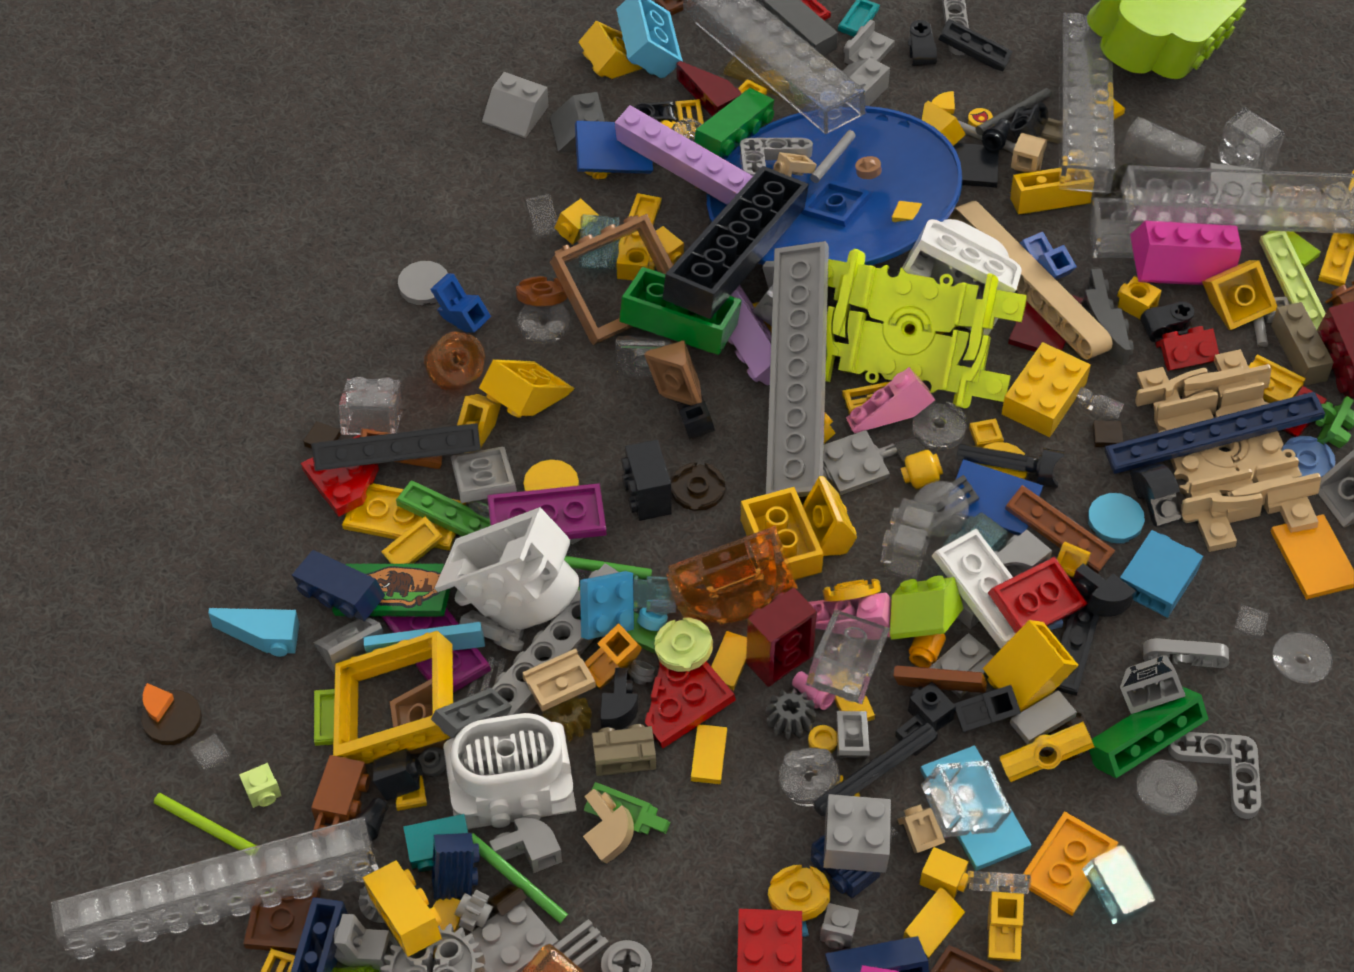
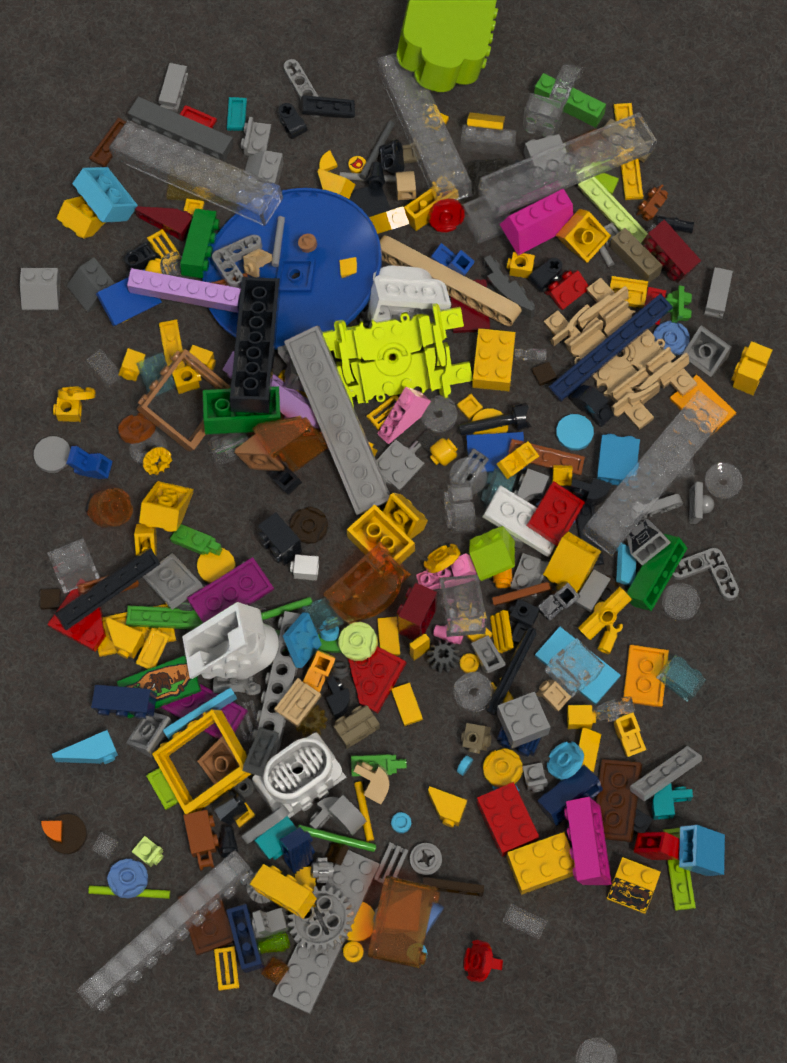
camera: 25 degrees left, 15 degrees up
(213, 805) = (127, 878): none -> medium blue tile
(383, 515) = (125, 639): none -> yellow slope
(438, 809) = (265, 824): none -> light grey beam
(471, 240) = (73, 415): none -> yellow brick
(490, 224) = (76, 393): none -> yellow tile
(540, 325) = (153, 456): none -> yellow gear
(540, 443) = (195, 541): none -> bright green hinge
(545, 851) = (347, 815): none -> light grey brick
(575, 866) = (364, 810): none -> yellow bar
(618, 902) = (401, 822): none -> medium azure tile
(664, 530) = (305, 567): none -> white brick
(695, 908) = (447, 806): none -> yellow slope
(725, 365) = (292, 440): none -> clear orange windscreen
(746, 864) = (464, 765): none -> medium azure tile
(762, 683) = (419, 646): none -> yellow tile
(781, 834) = (476, 738): none -> dark tan brick
(888, 717) = (502, 631): none -> yellow tile
(893, 919) = (565, 760): none -> medium azure tile
(987, 186) = (389, 220): none -> slope
(1017, 513) = (517, 460): none -> yellow slope
(1038, 790) = (609, 638): none -> yellow bar
(1065, 205) = (446, 215): none -> red tile
(1107, 707) = (625, 566): none -> medium azure tile
(1170, 124) = (486, 121): none -> yellow tile
(1203, 601) = (654, 473): none -> clear brick
(1253, 672) = (698, 503): none -> light grey tile
(1296, 113) = (565, 81): none -> clear slope
(1299, 145) = (579, 104): none -> bright green brick

